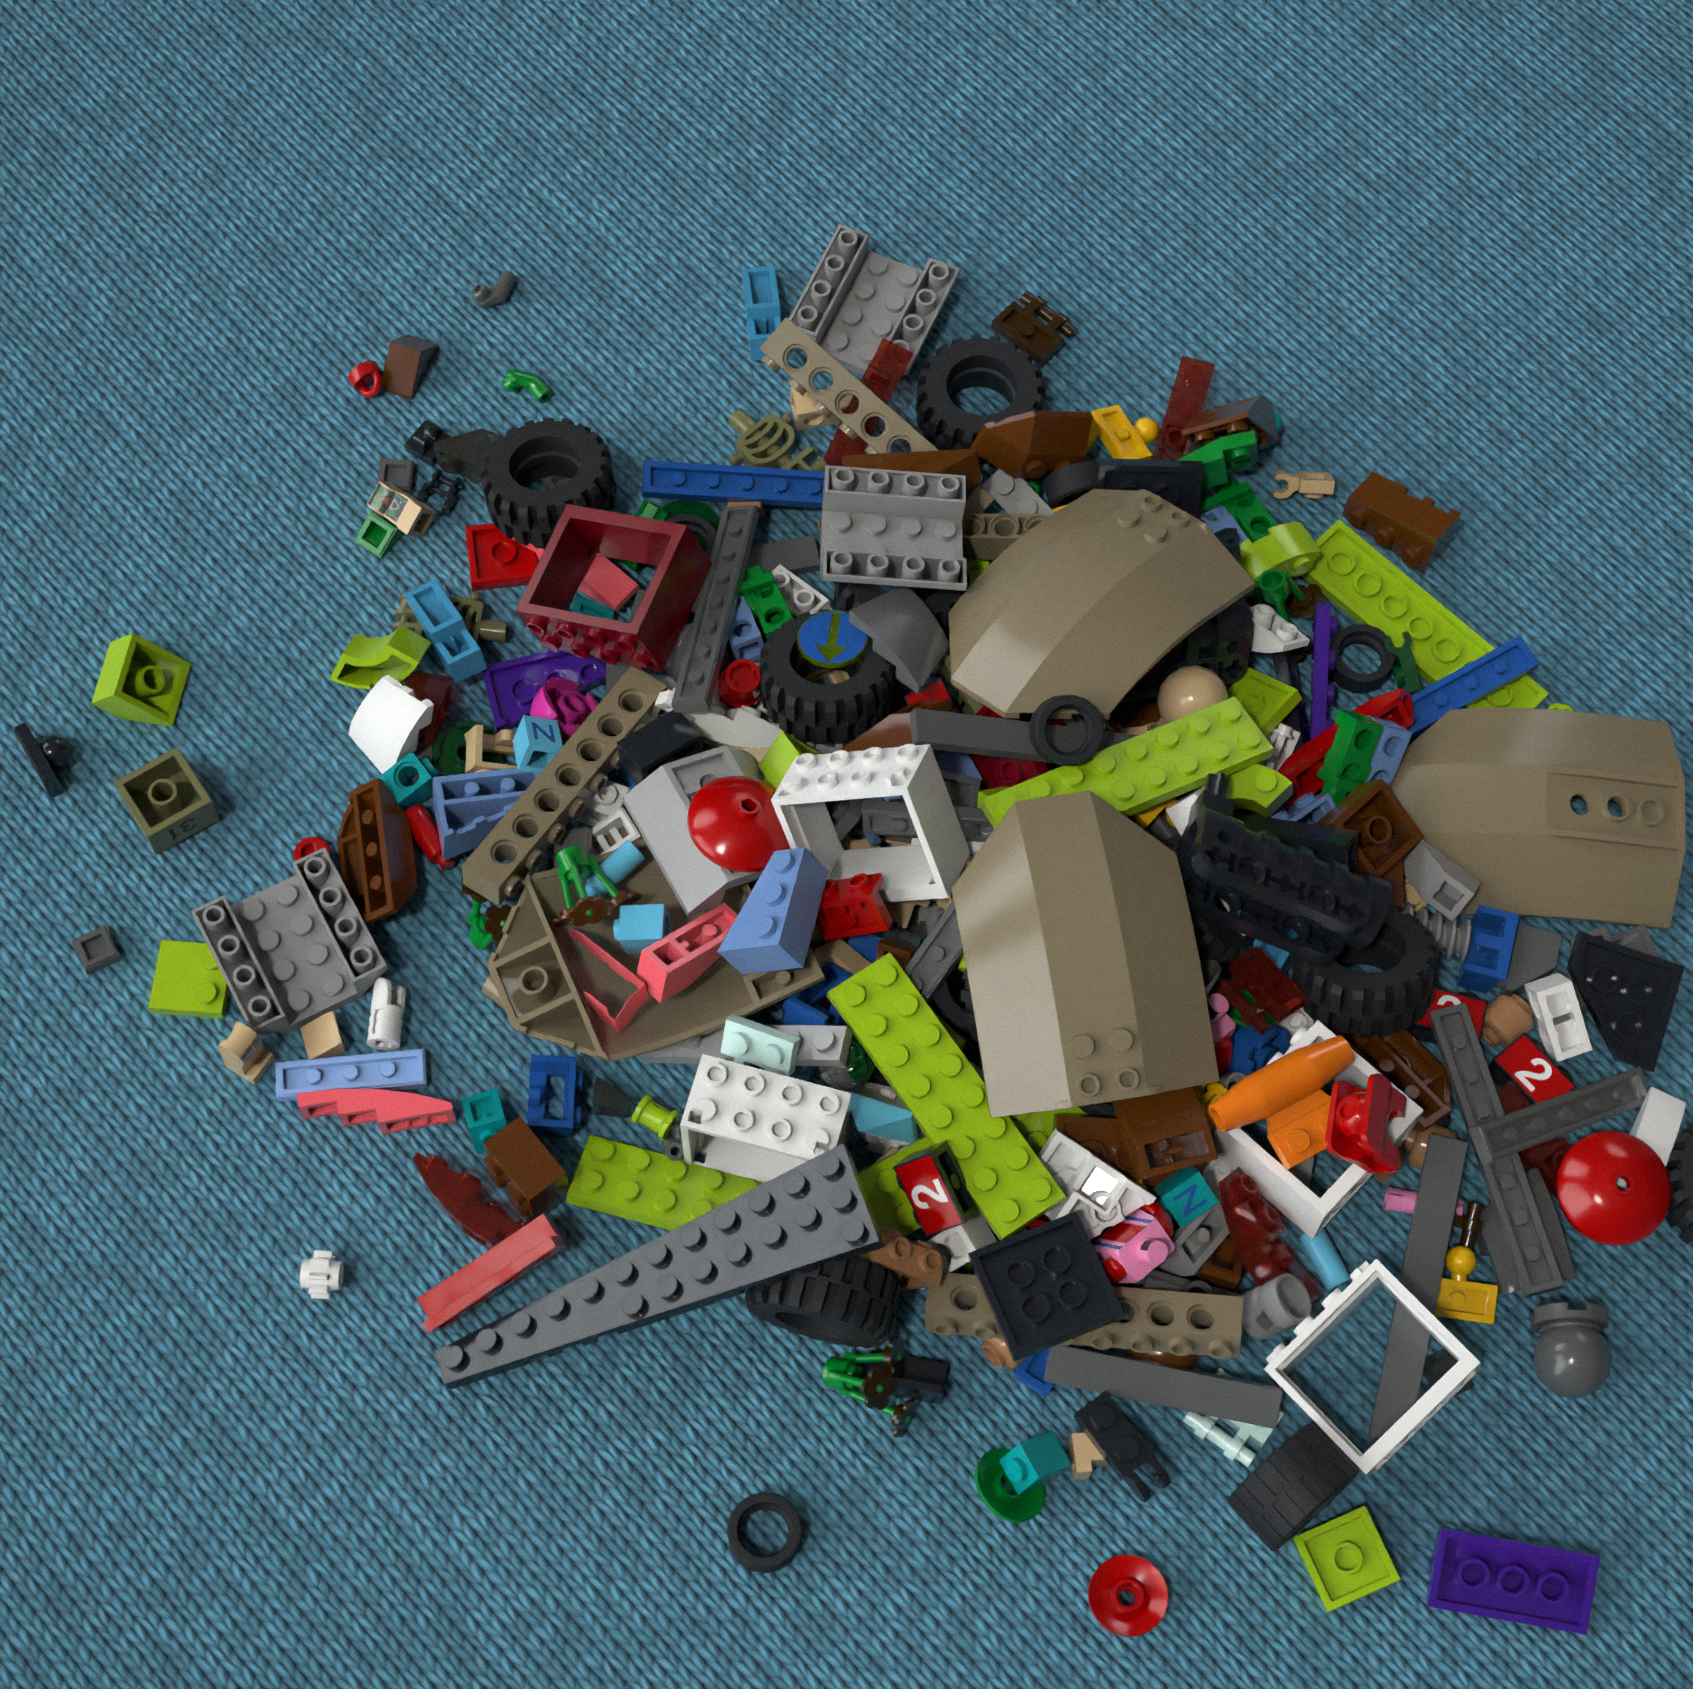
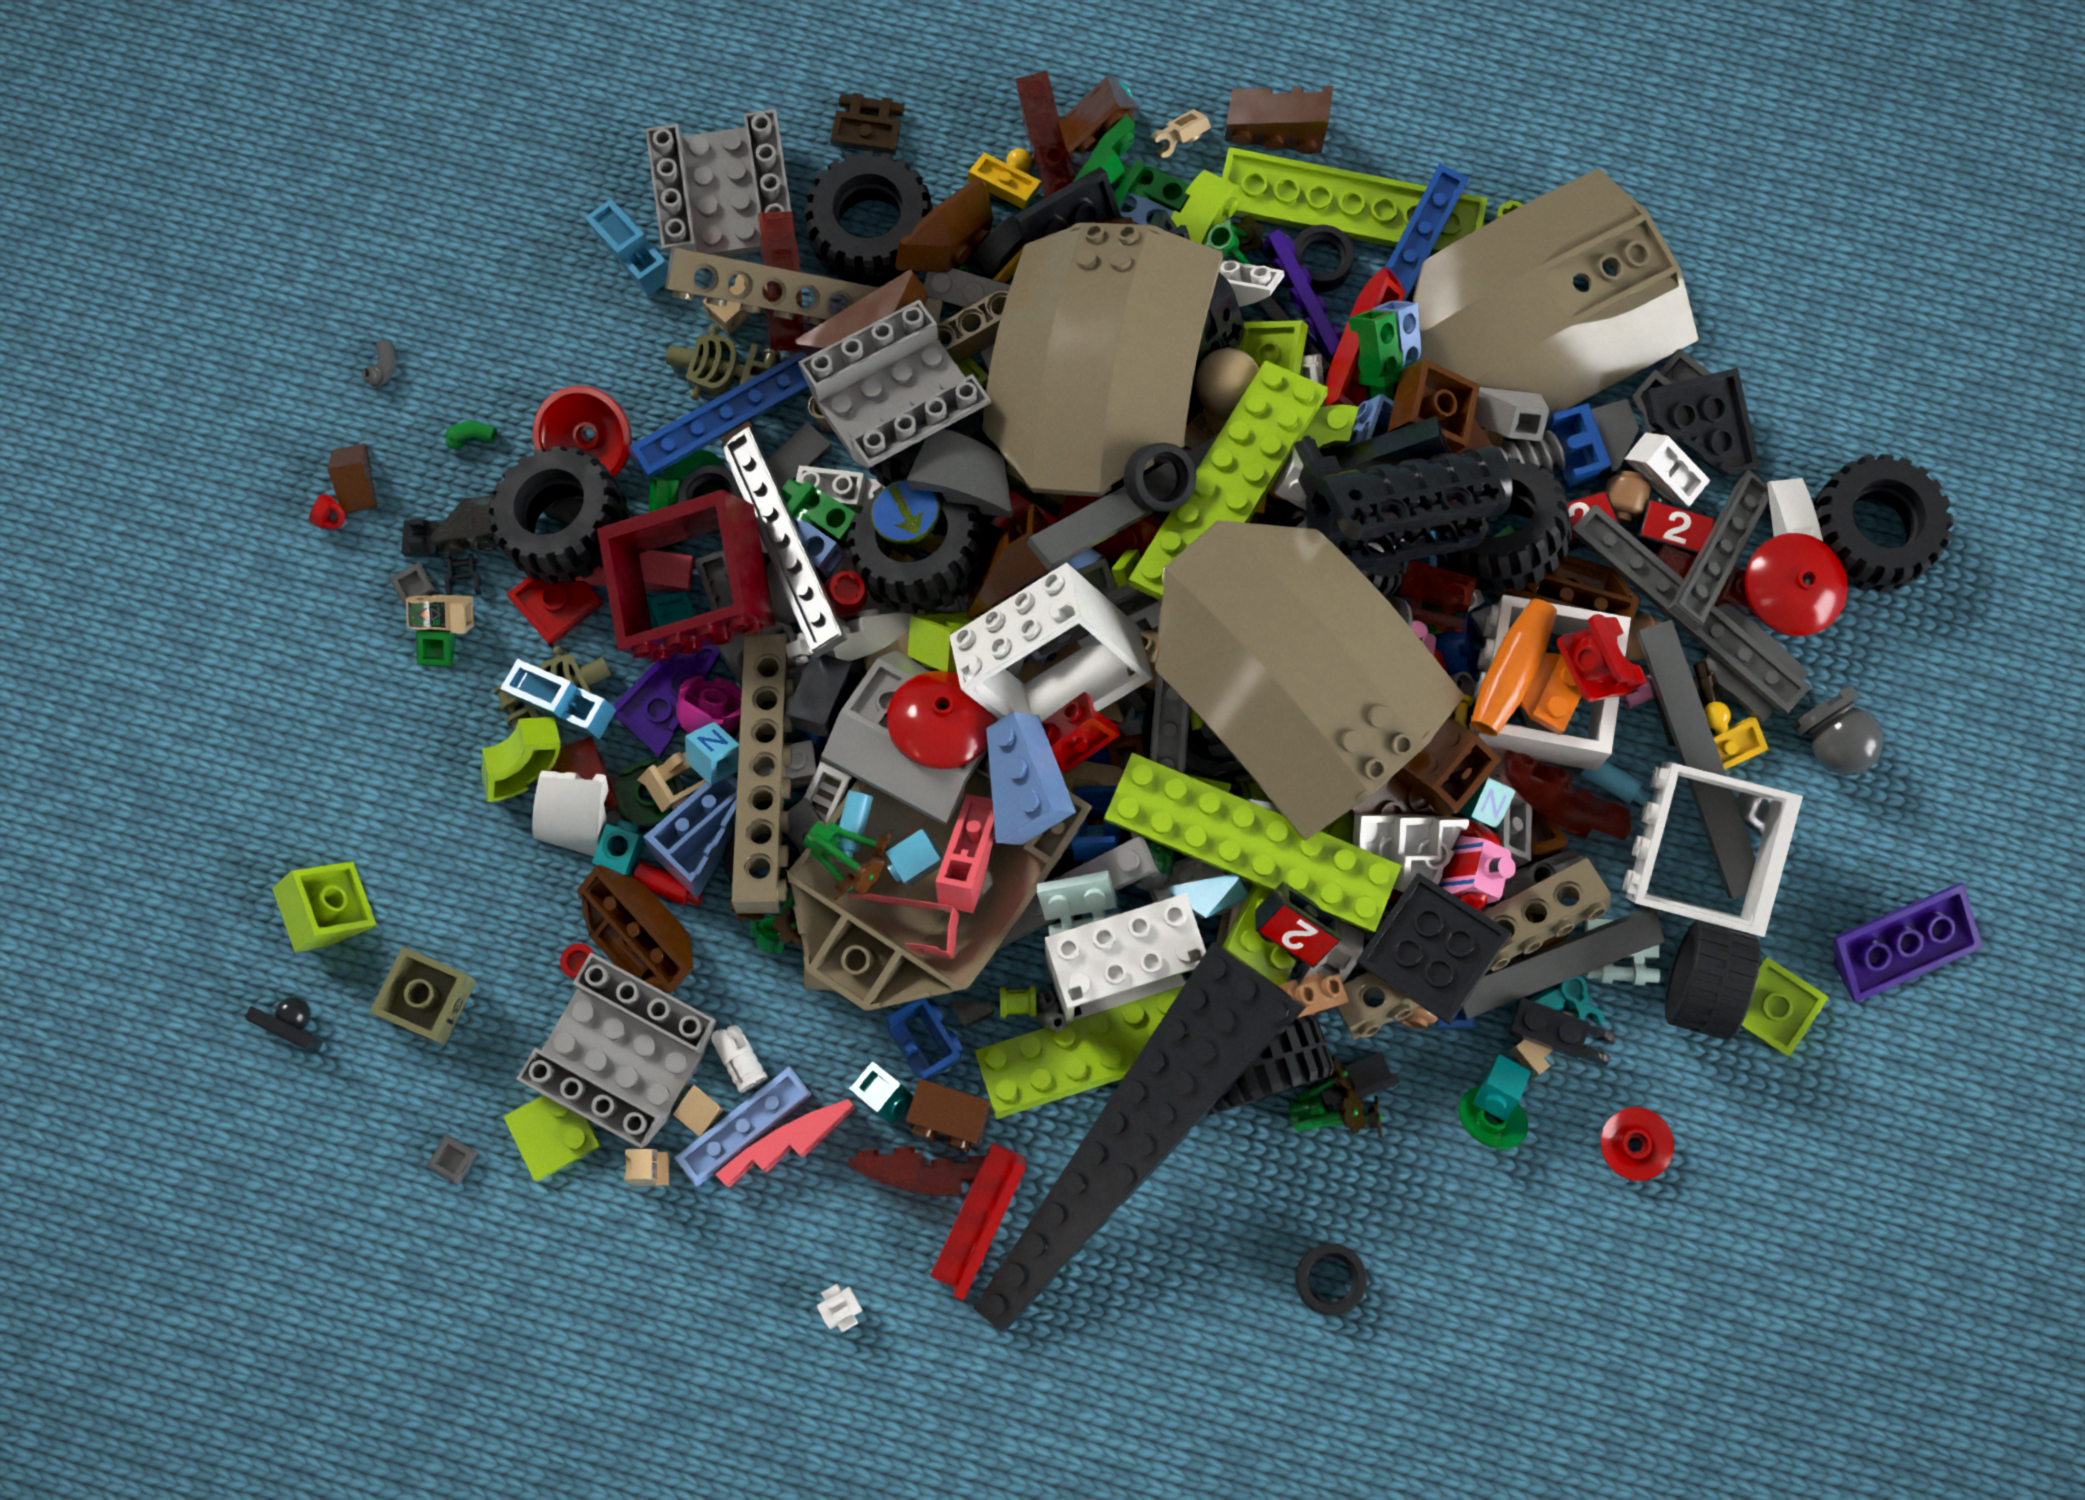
camera: 30 degrees left, 10 degrees up
(619, 413) = (574, 409): none -> red dish
(1160, 1425) = (1574, 994): none -> teal bar
(1275, 1306) = (1607, 843): light grey wheel -> none
(1405, 672) = (1366, 246): dark green plate -> none

